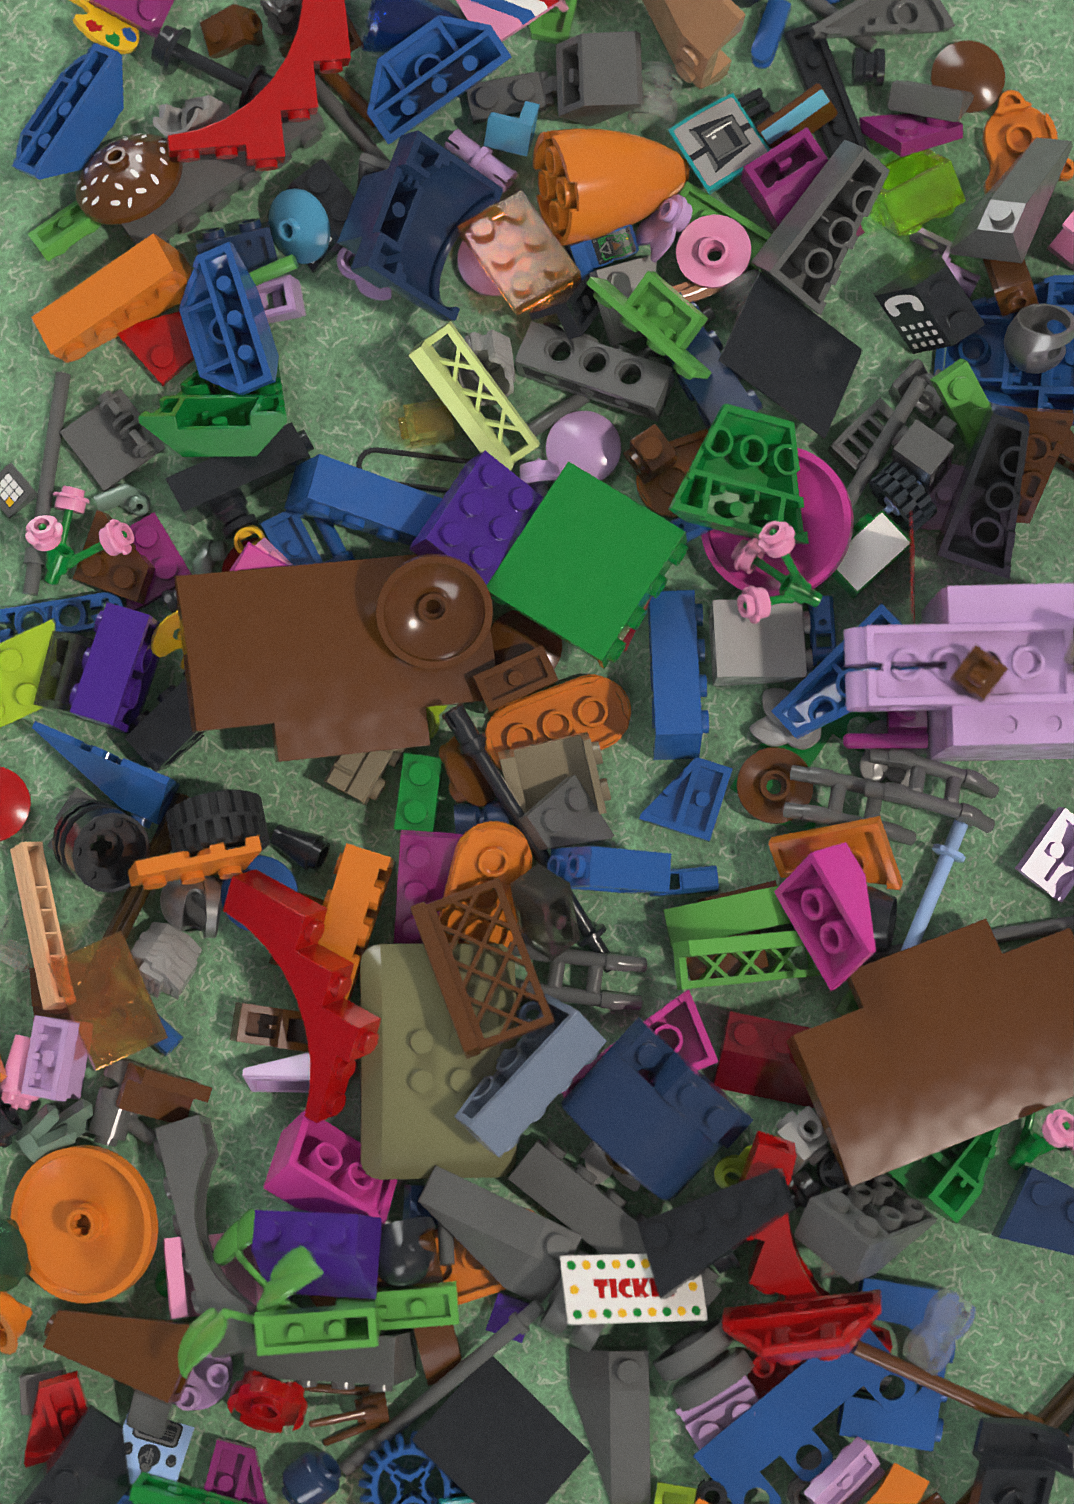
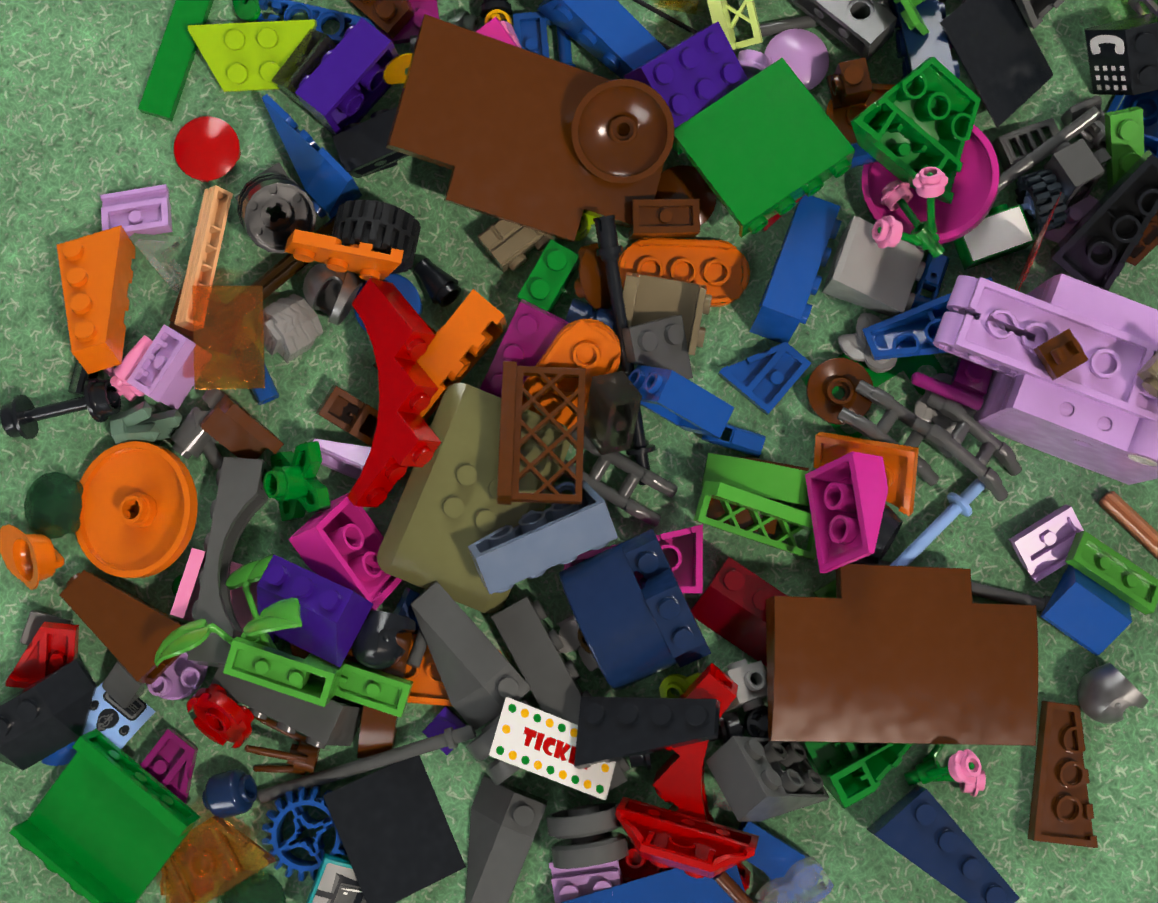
camera: 20 degrees right, 0 degrees up
(242, 1124) = (295, 482): none -> green plant

